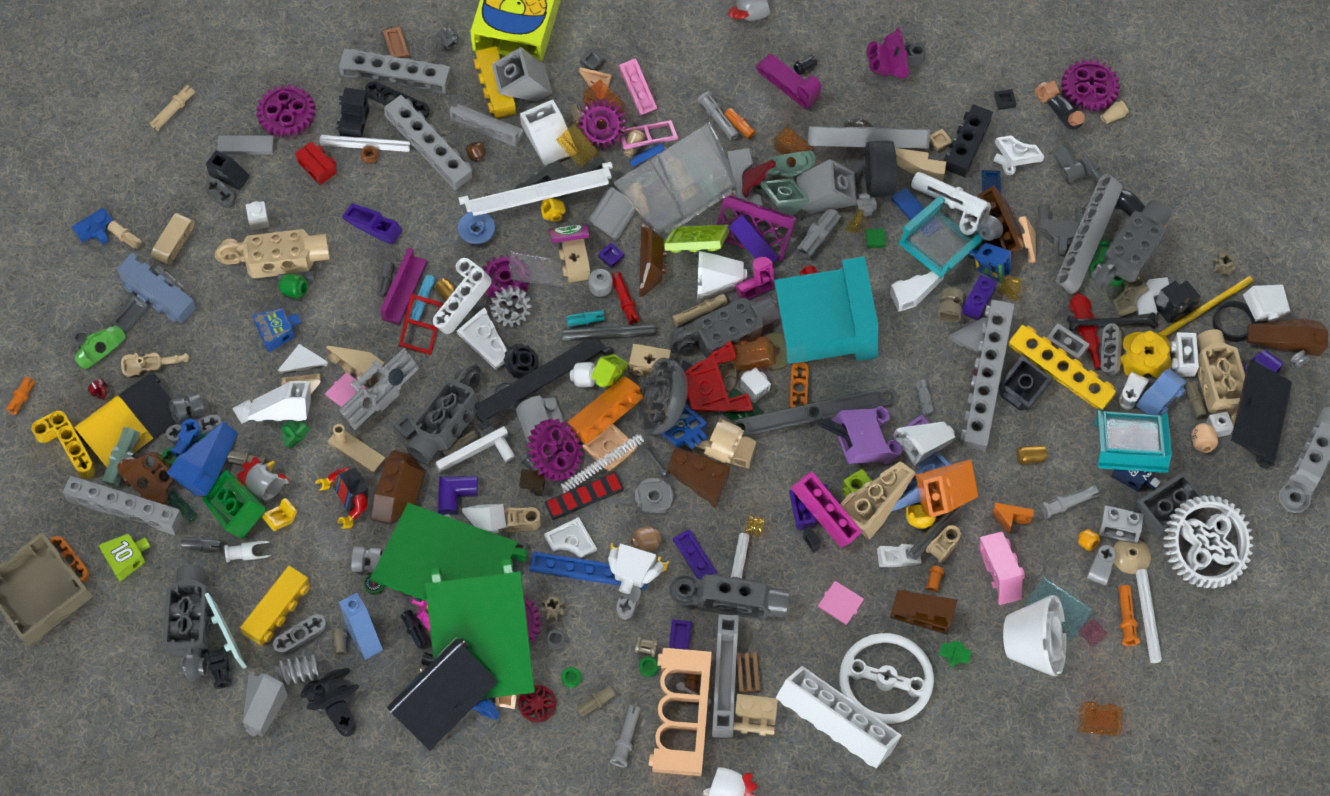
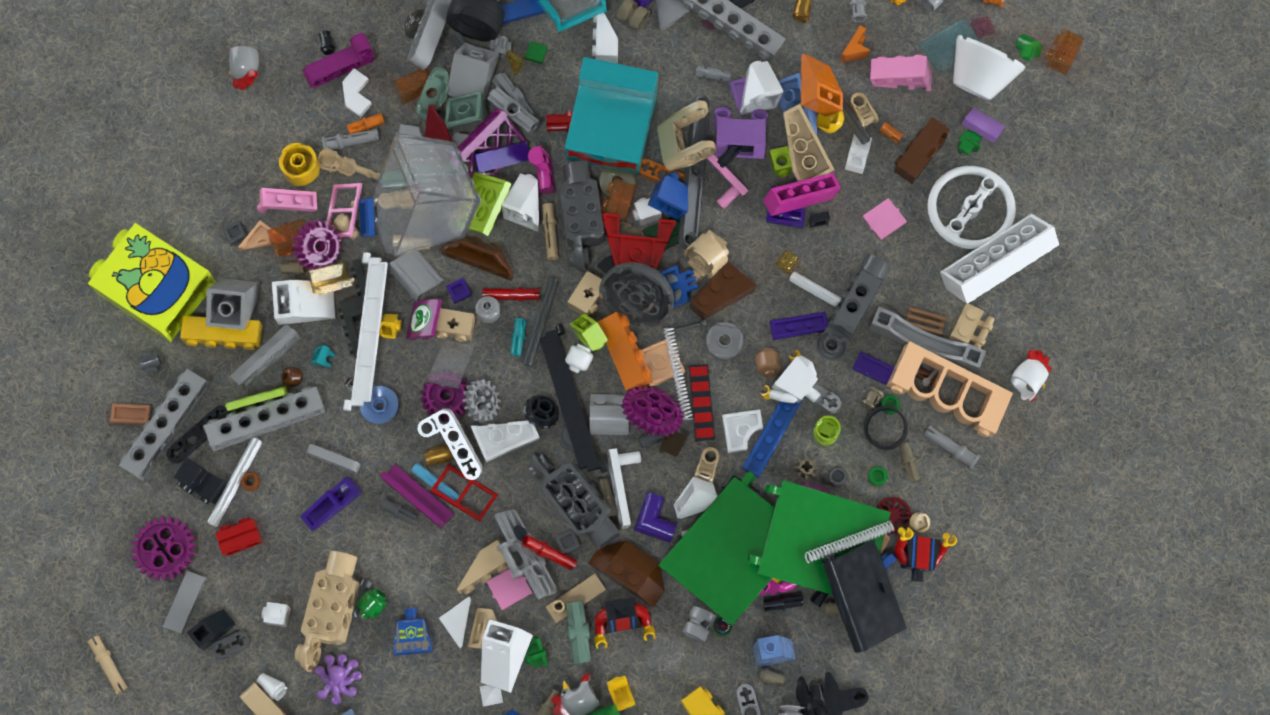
camera: 70 degrees left, 10 degrees up
(193, 237) = (272, 687): none -> white cone
(219, 284) = (337, 678): none -> medium lavender animal
(324, 459) = (578, 632): none -> sand green piece
(387, 408) = (542, 549): none -> red pin
(413, 209) = (331, 457): none -> light grey beam
(443, 128) = (256, 398): none -> lime tile
(488, 661) = (889, 528): none -> white piece
(503, 166) = (320, 355): none -> teal tile
(505, 734) = (920, 553): none -> torso
(538, 729) = (920, 522): none -> tan tile
(596, 612) = (826, 430): none -> lime wheel
(624, 682) = (869, 417): none -> black tyre
(675, 83) = (299, 174): none -> yellow brick
(691, 111) = (332, 161): none -> tan piece
(770, 99) = (353, 100): none -> white tile
(775, 395) = (670, 196): none -> blue torso
(799, 240) = (506, 103): none -> light grey piece
(814, 453) = (736, 189): none -> bright pink piece
(825, 384) = (672, 142): none -> tan connector
(980, 661) = (983, 125): none -> medium lavender slope
(1087, 681) = (1028, 47): none -> green piece

